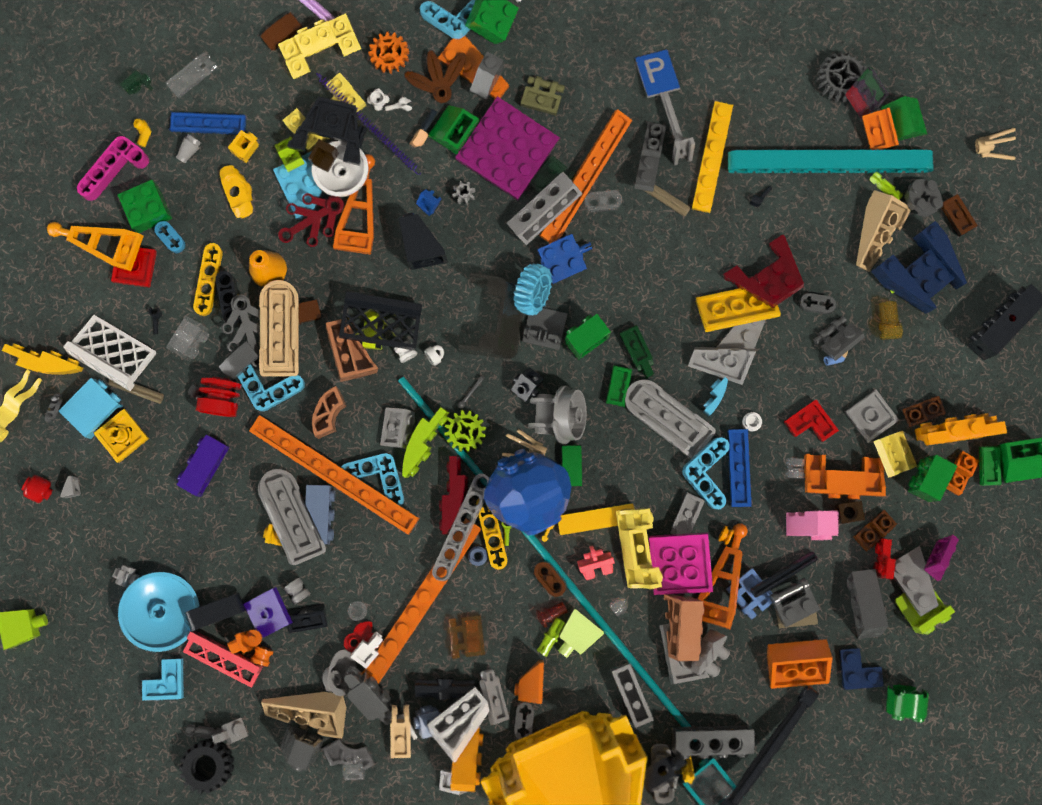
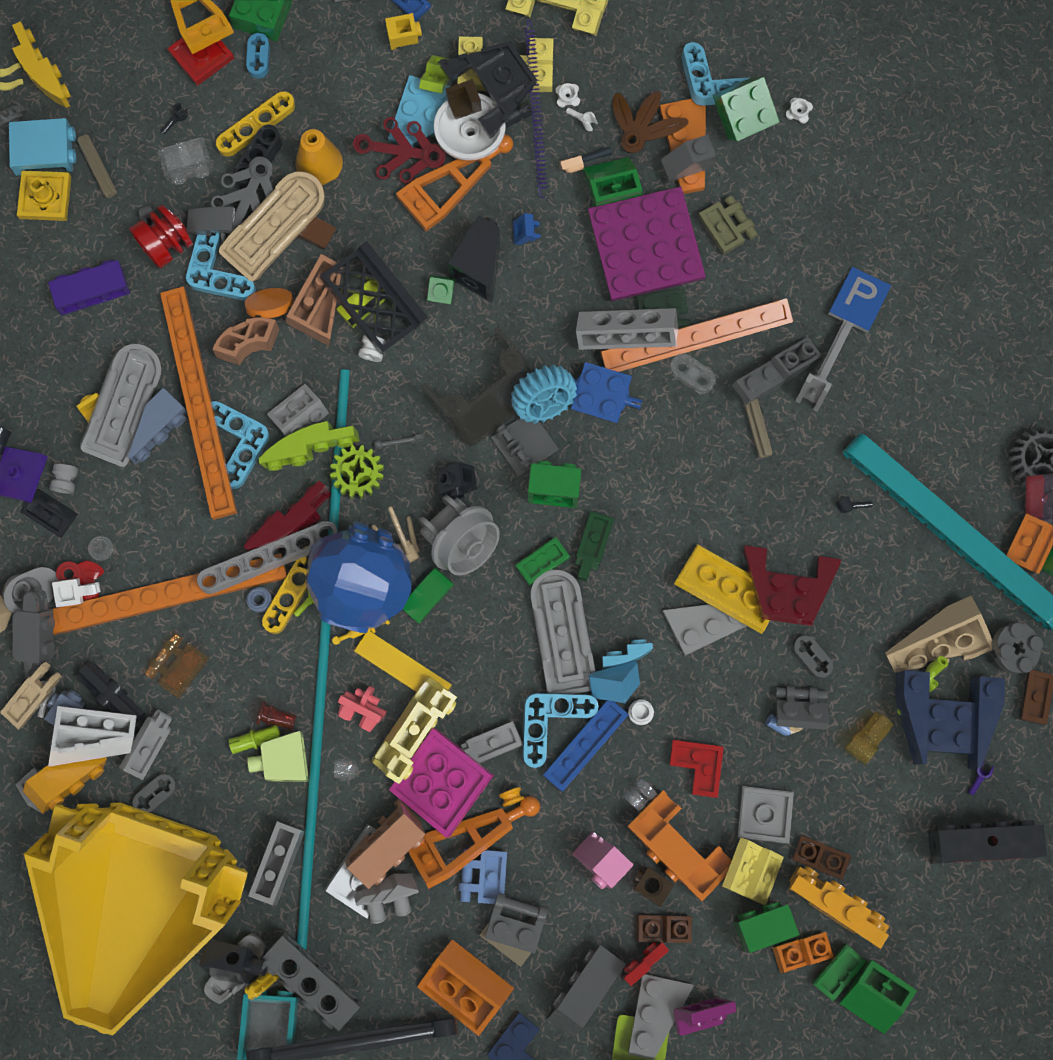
camera: 40 degrees right, 5 degrees down
(104, 367) = (87, 119): white fence -> none
(240, 204) = (349, 81): yellow piece -> none
(320, 379) = (269, 303): none -> orange tile
(389, 44) = (608, 65): orange gear -> none
(412, 281) = (441, 289): none -> plate
(432, 355) = (393, 374): white tile -> none
(466, 197) = (561, 253): light grey gear -> none
(531, 684) = (193, 765): orange slope -> none
(550, 578) = (302, 683): reddish brown plate -> none
(712, 157) = (840, 425): yellow plate -> none
(723, 362) = (664, 628): light grey wing -> none
(724, 418) = (615, 682): none -> dark azure slope
(783, 574) = (532, 886): black axle -> none
(885, 186) = (988, 604): lime axle -> none
(890, 247) = (935, 668): none -> lime arm
(968, 285) = (979, 778): none -> dark purple hand

